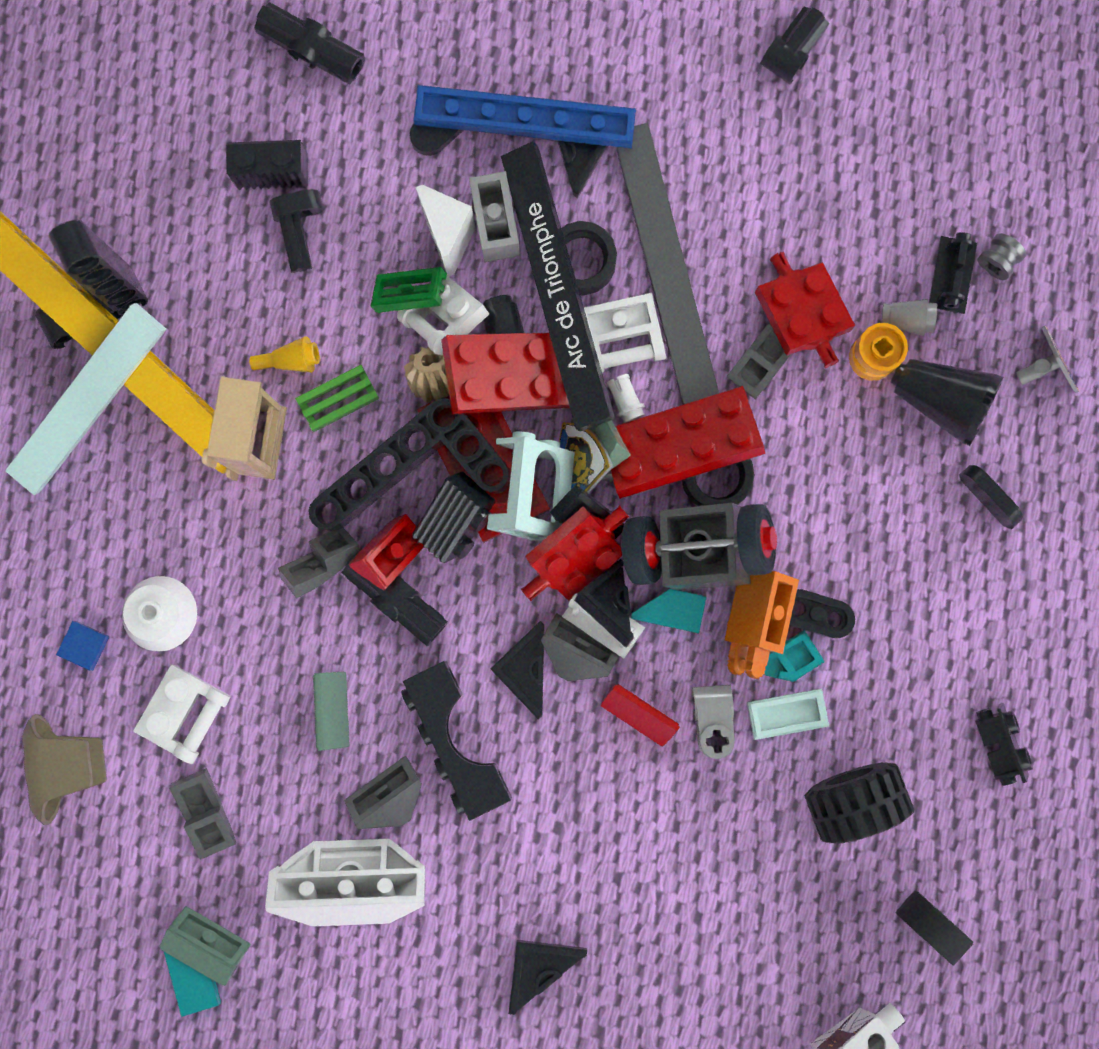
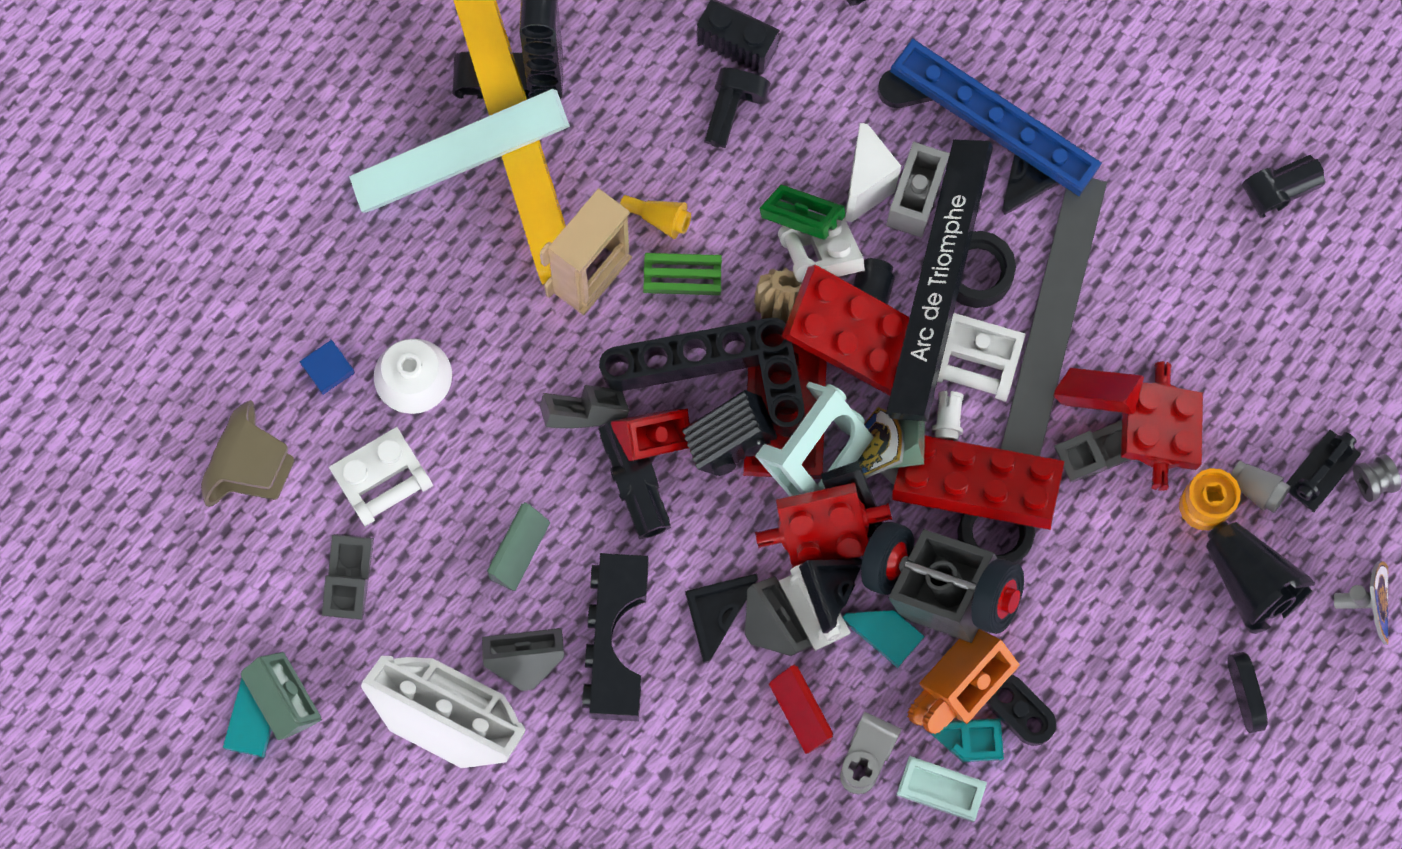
camera: 25 degrees right, 10 degrees down
(739, 307) = (1099, 390): none -> red slope

